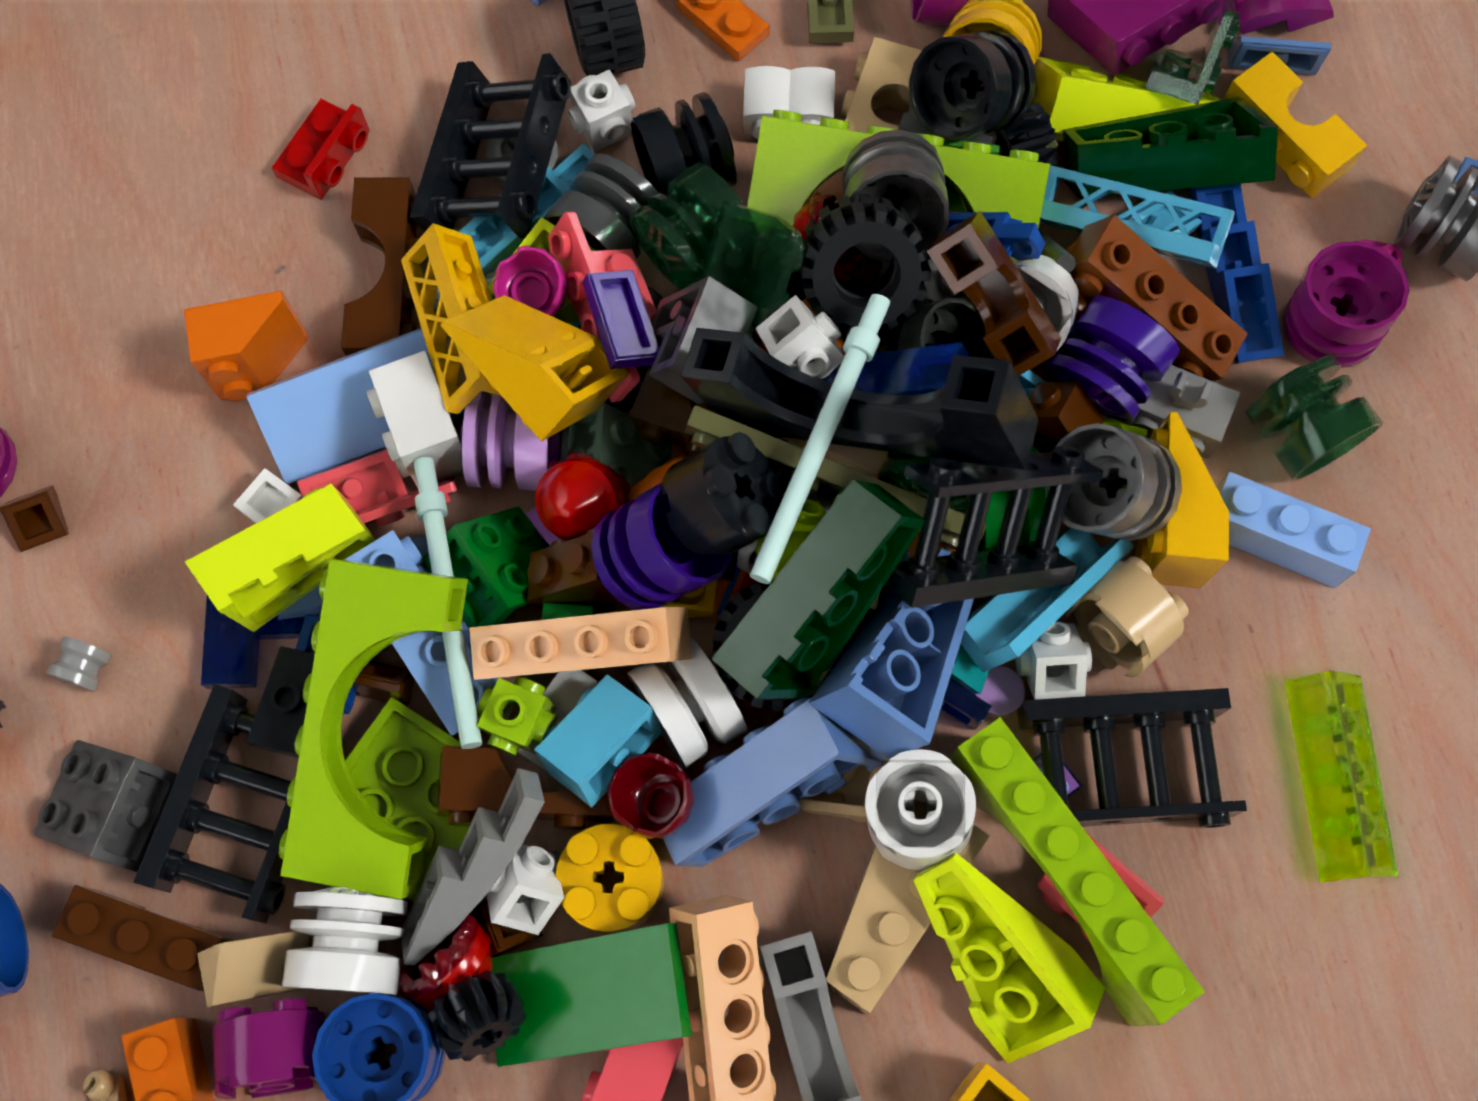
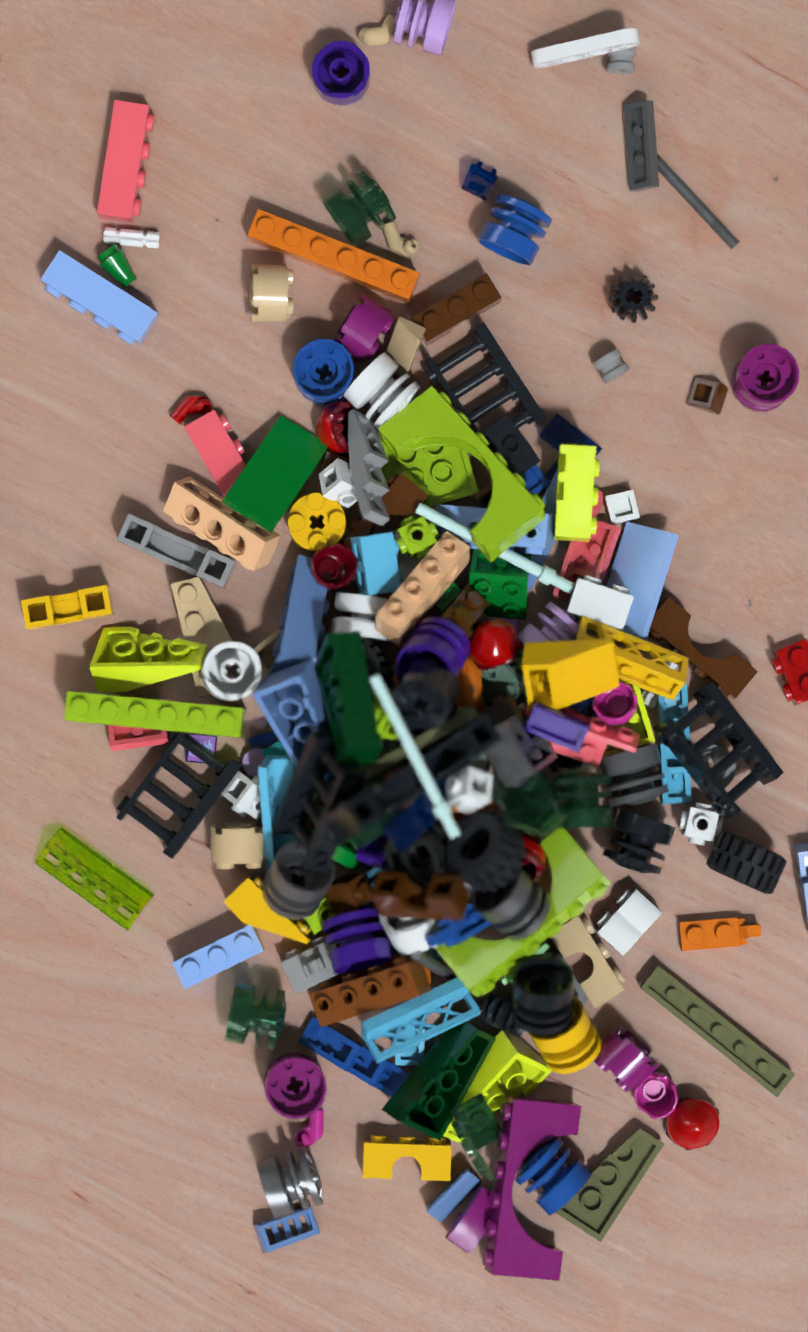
camera: 135 degrees right, 15 degrees up
(105, 805) = (534, 332): flat silver bracket -> none
(243, 342) = (708, 550): orange slope -> none
(476, 1015) = (305, 422): black gear -> none

